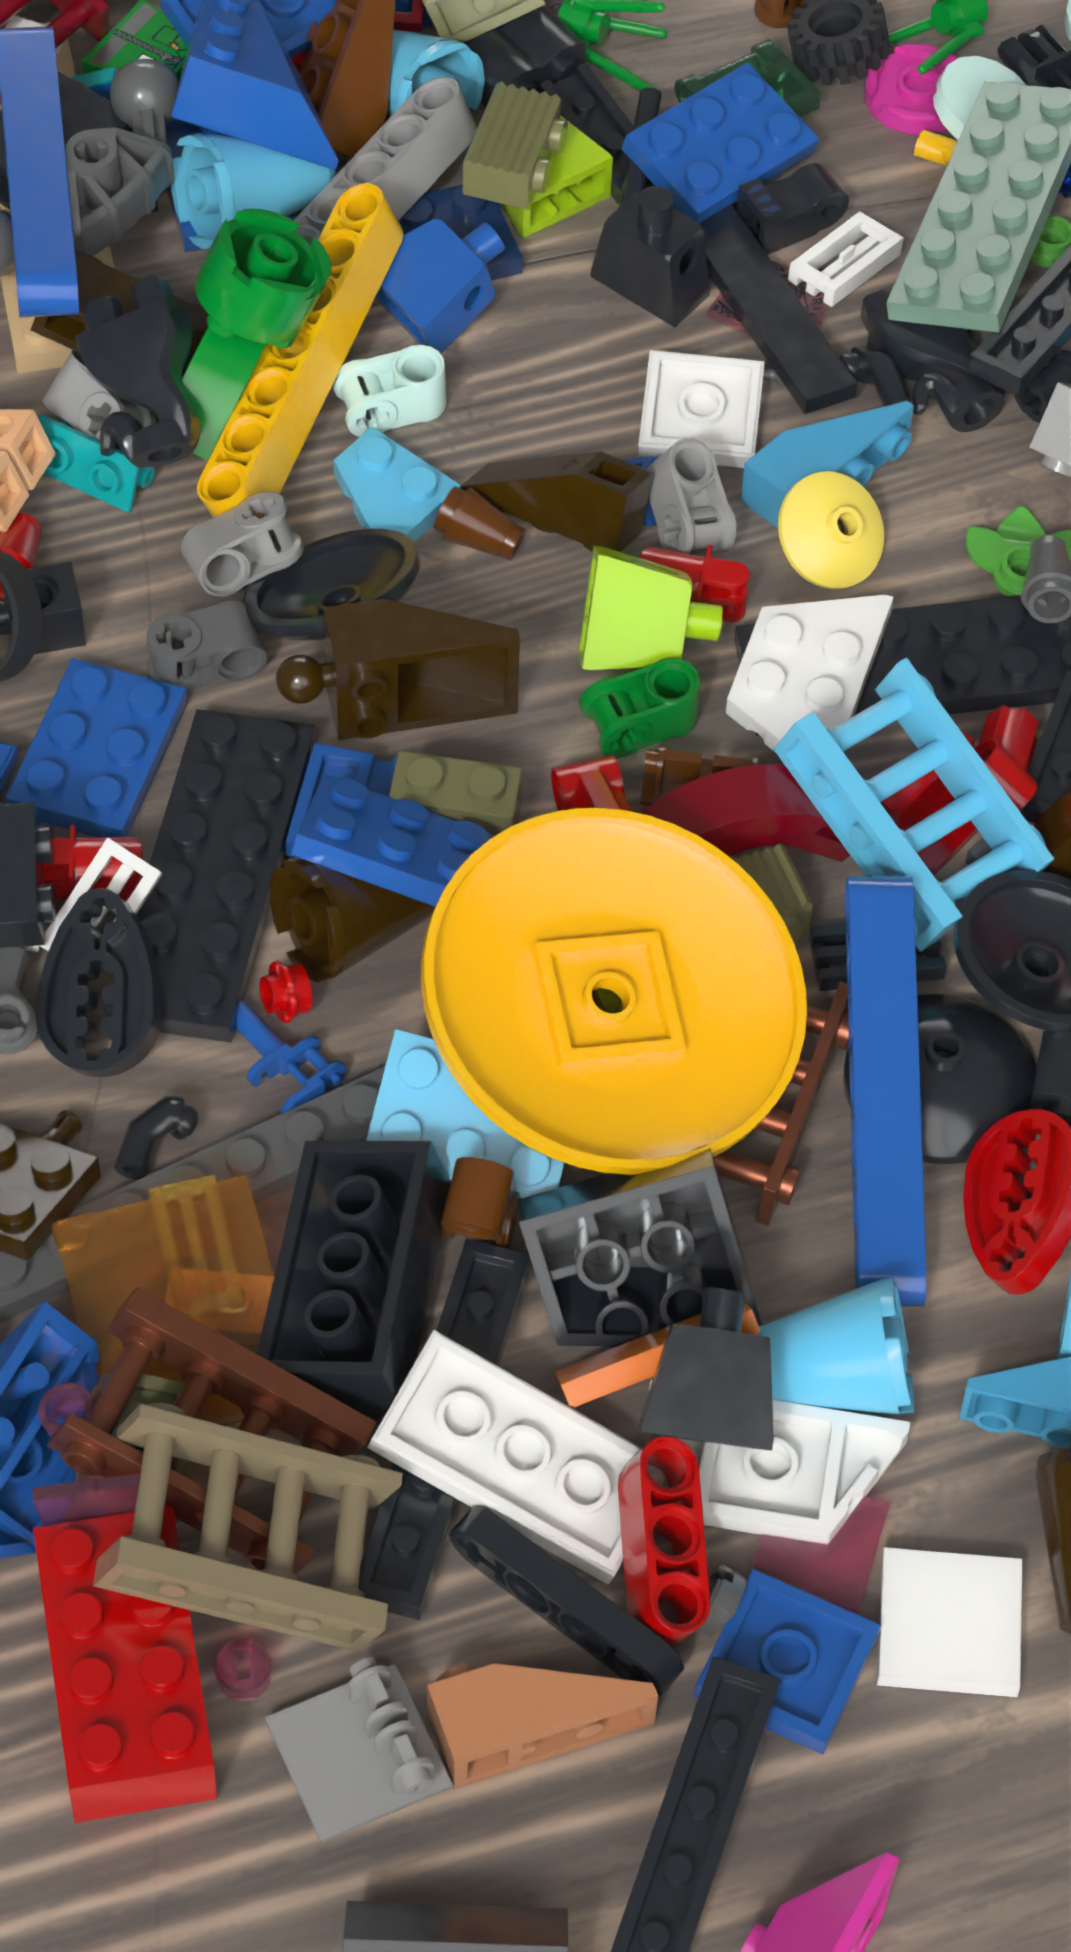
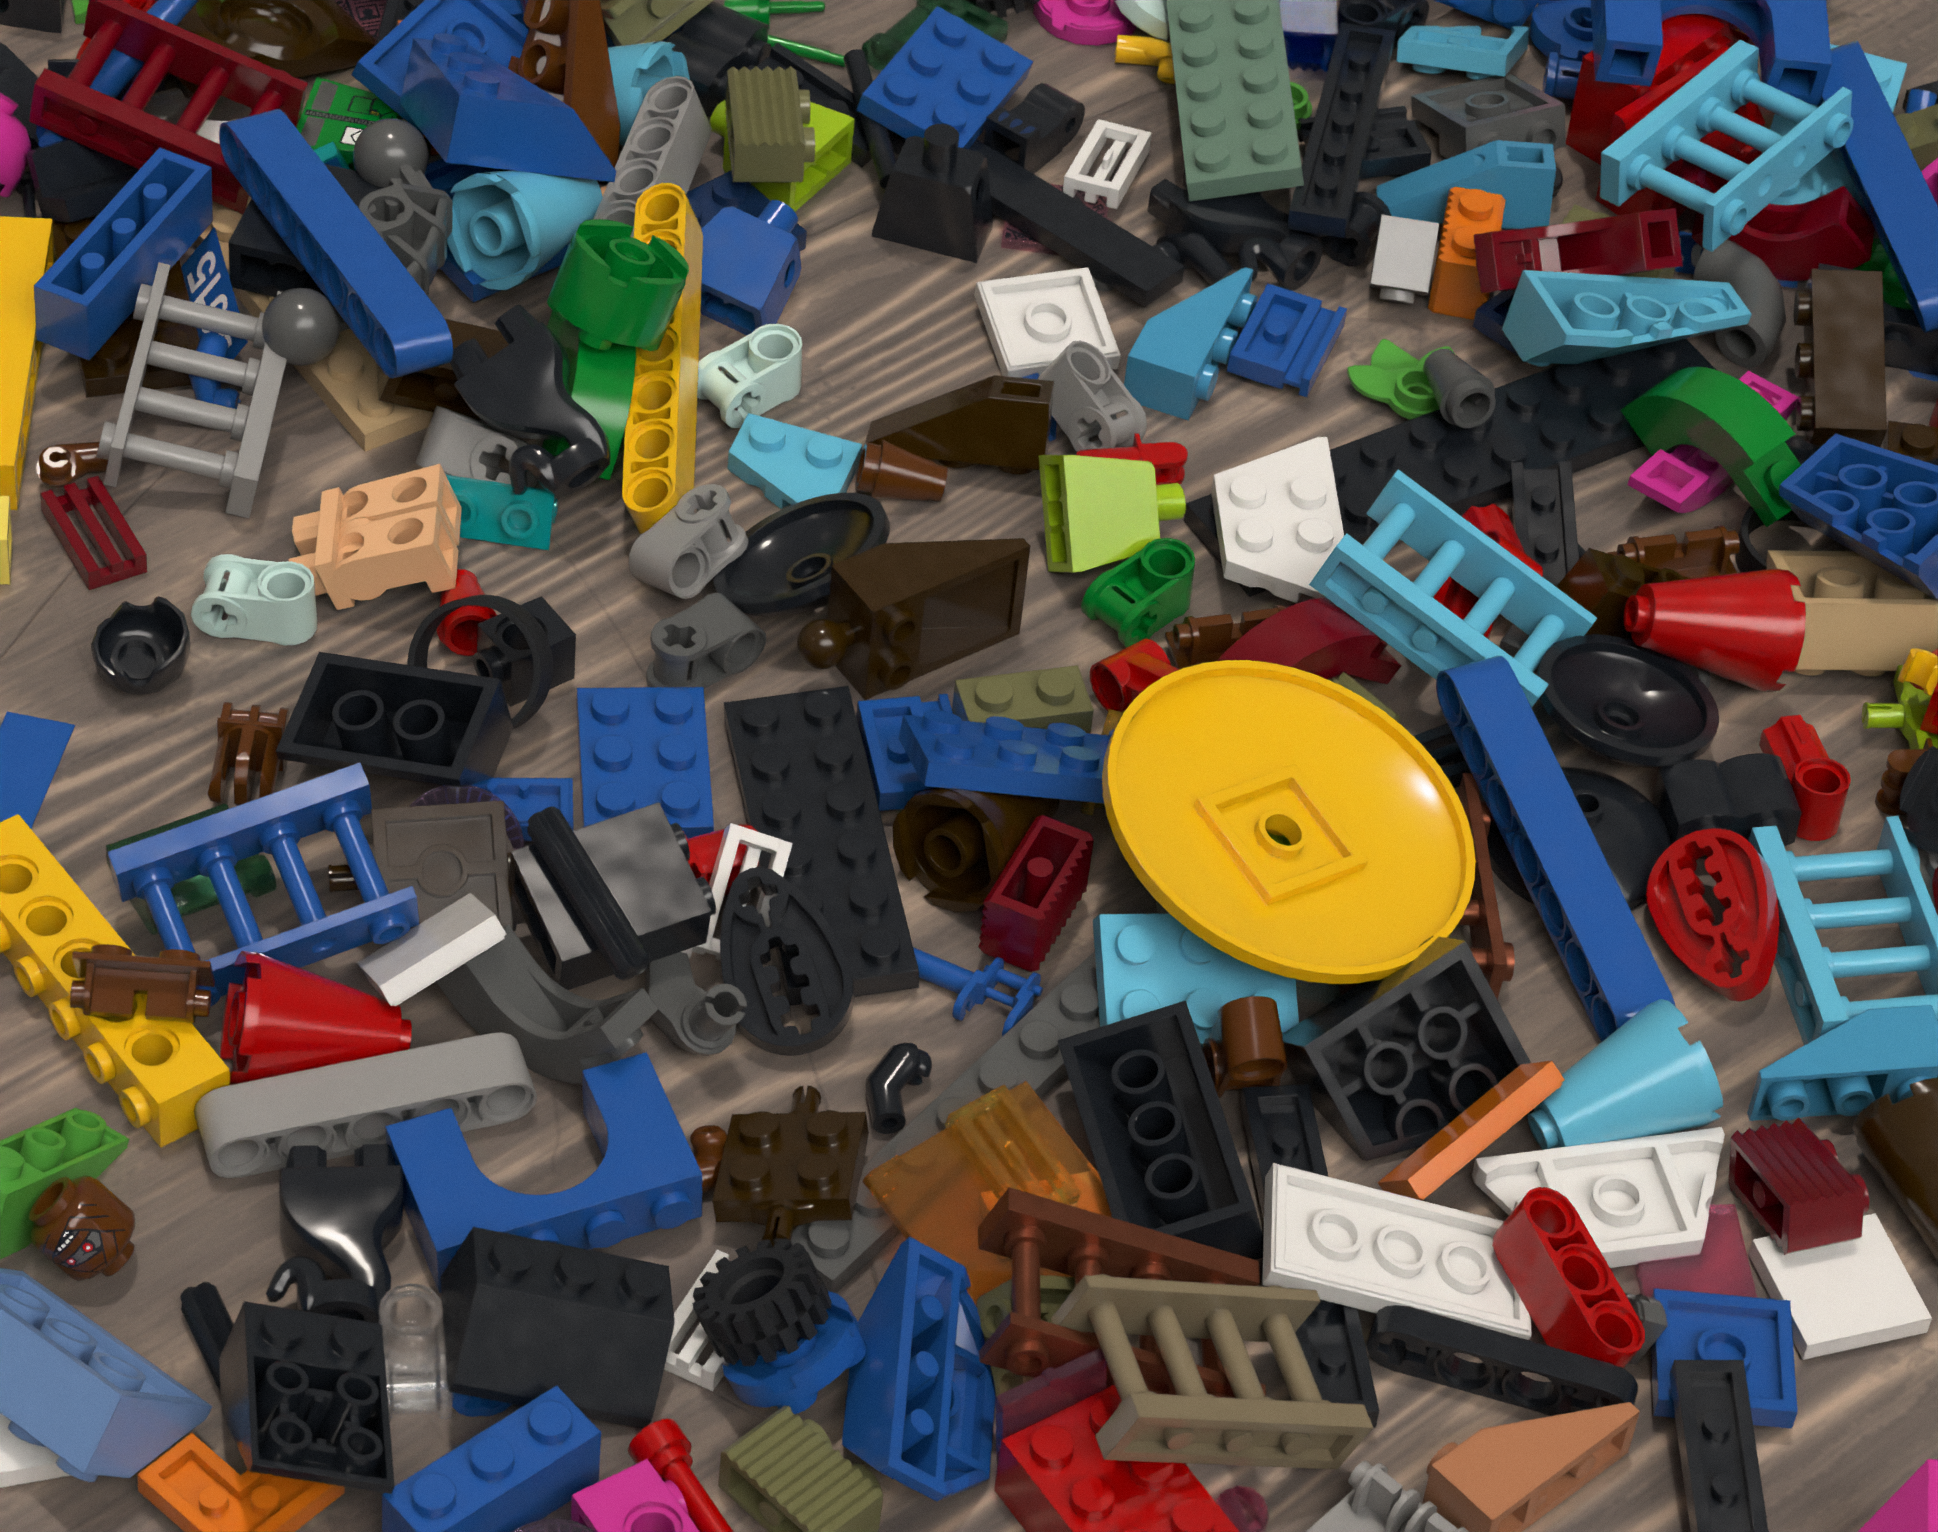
camera: 25 degrees left, 10 degrees down
(61, 1402) = (975, 1325): clear pink hinge -> none
(286, 991) = (952, 924): red plate -> none
(366, 986) = (1036, 893): none -> dark red brick
(713, 1380) = (1551, 1129): black torso -> none
(812, 535) = (1231, 398): light yellow dish -> none
(926, 482) = (1286, 340): none -> blue plate
(949, 1509) = (1797, 1186): none -> dark red brick

